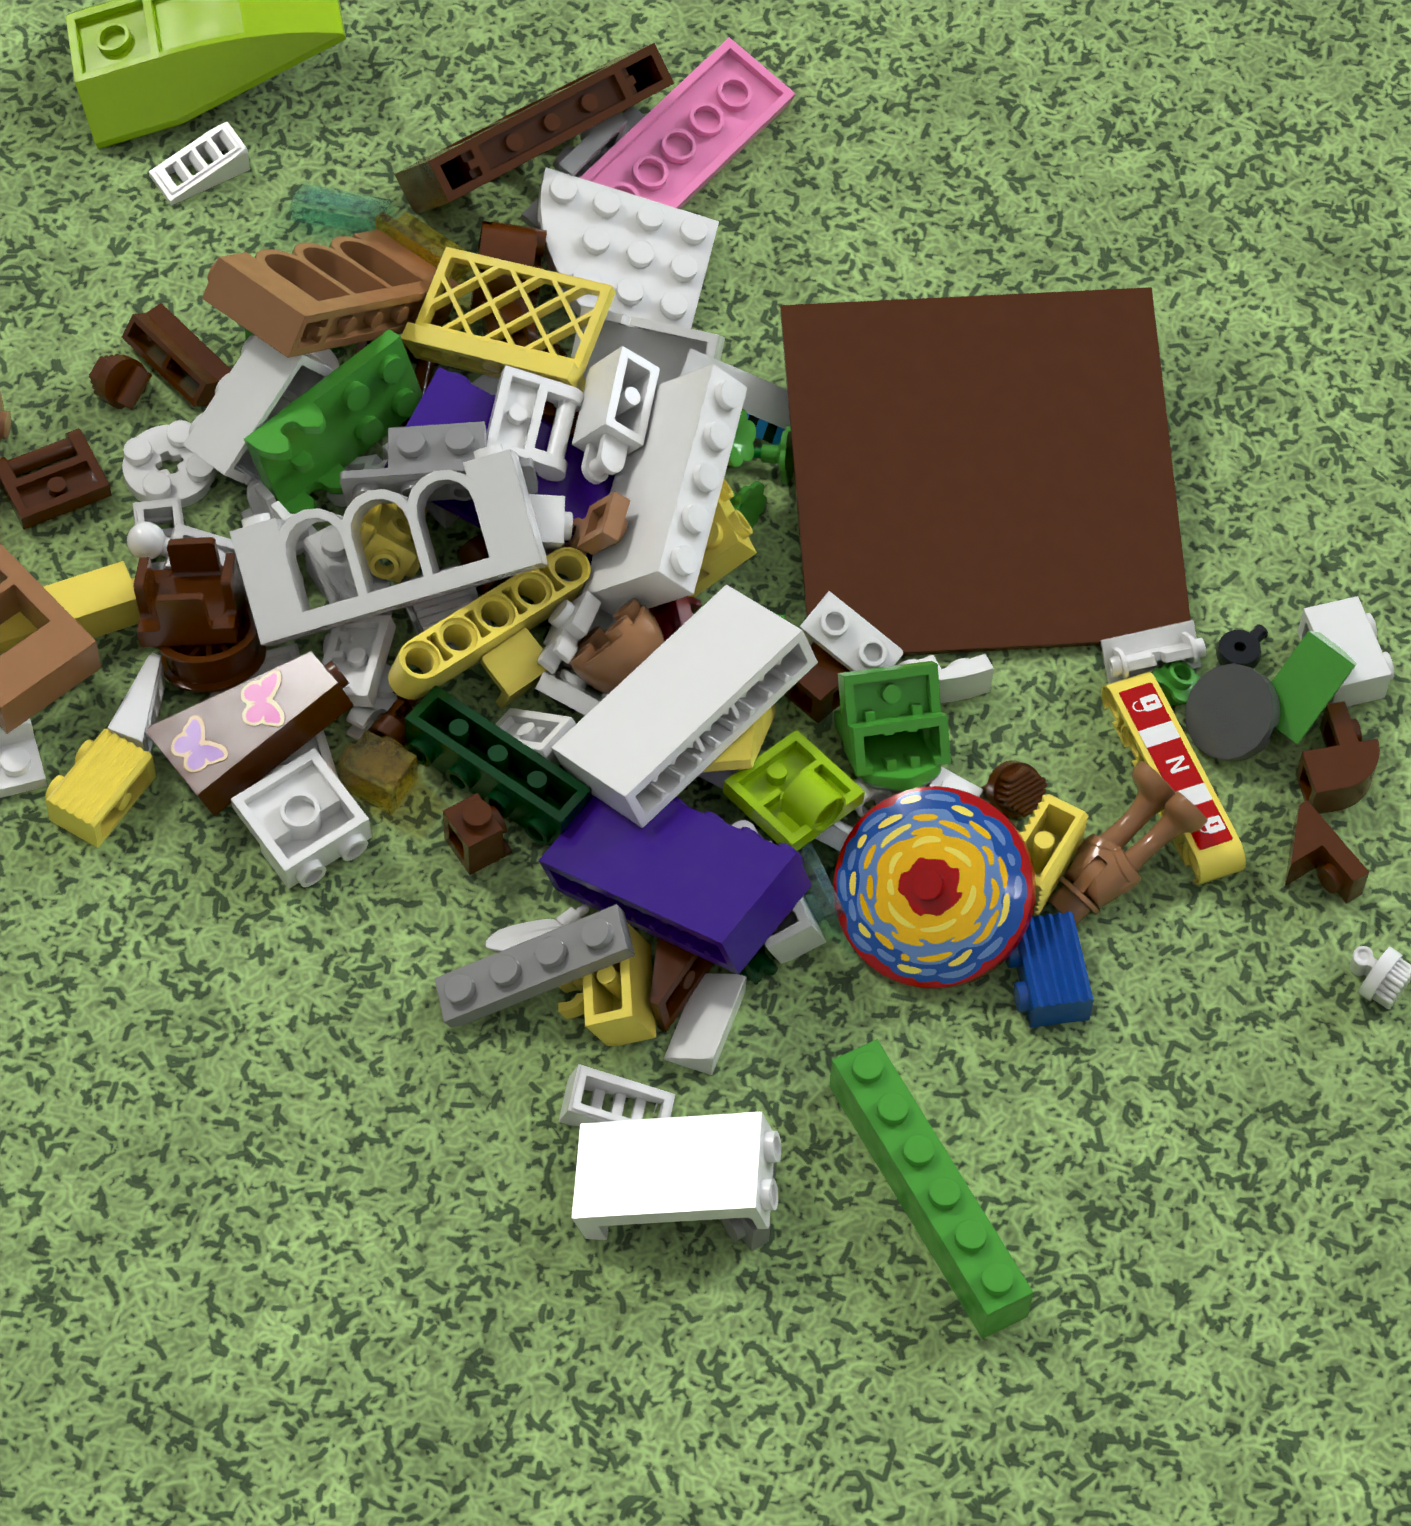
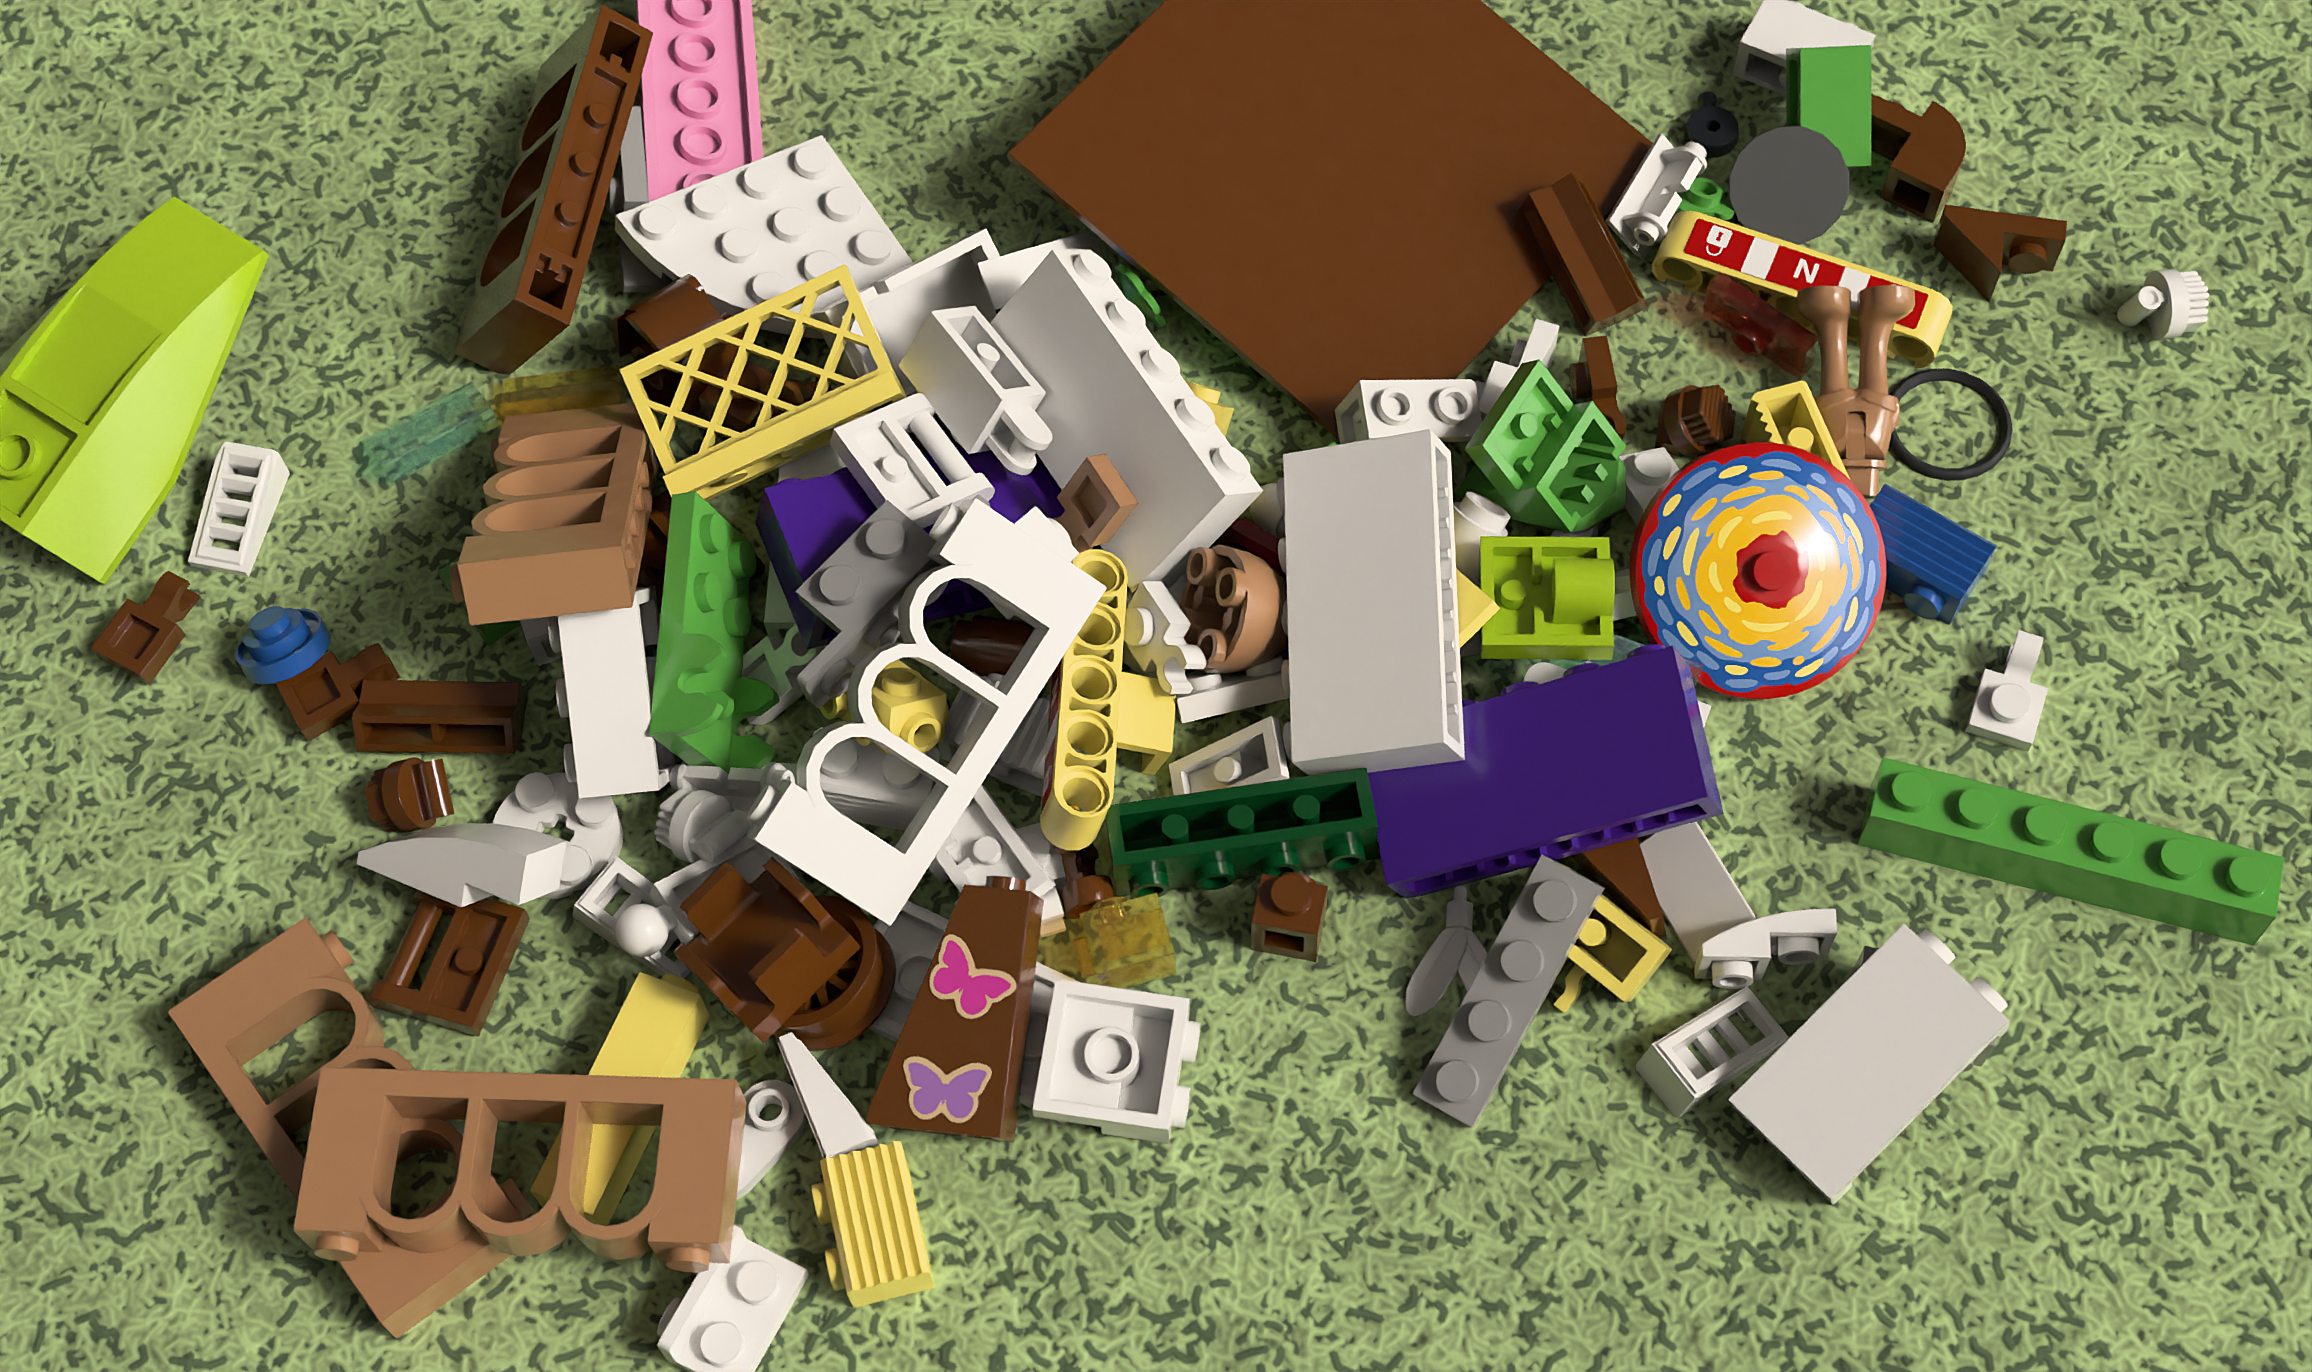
camera: 40 degrees left, 5 degrees up
(85, 189) = (146, 636): none -> reddish brown plate
(91, 698) = (768, 1140): none -> white plate
(106, 437) = (472, 862): none -> white slope
(141, 291) = (330, 690): none -> reddish brown plate
(142, 251) = (281, 644): none -> blue plate
(228, 511) = (699, 825): none -> white piece
(693, 1071) = (1745, 950): none -> white slope
(814, 722) = (1475, 518): none -> white brick
(984, 723) = (1595, 380): none -> reddish brown plate
(1006, 1095) = (2007, 702): none -> white plate
(1067, 647) = (1582, 254): none -> reddish brown piece
(1116, 773) = (1759, 327): none -> clear red plate
(1157, 965) = (1981, 387): none -> black tyre

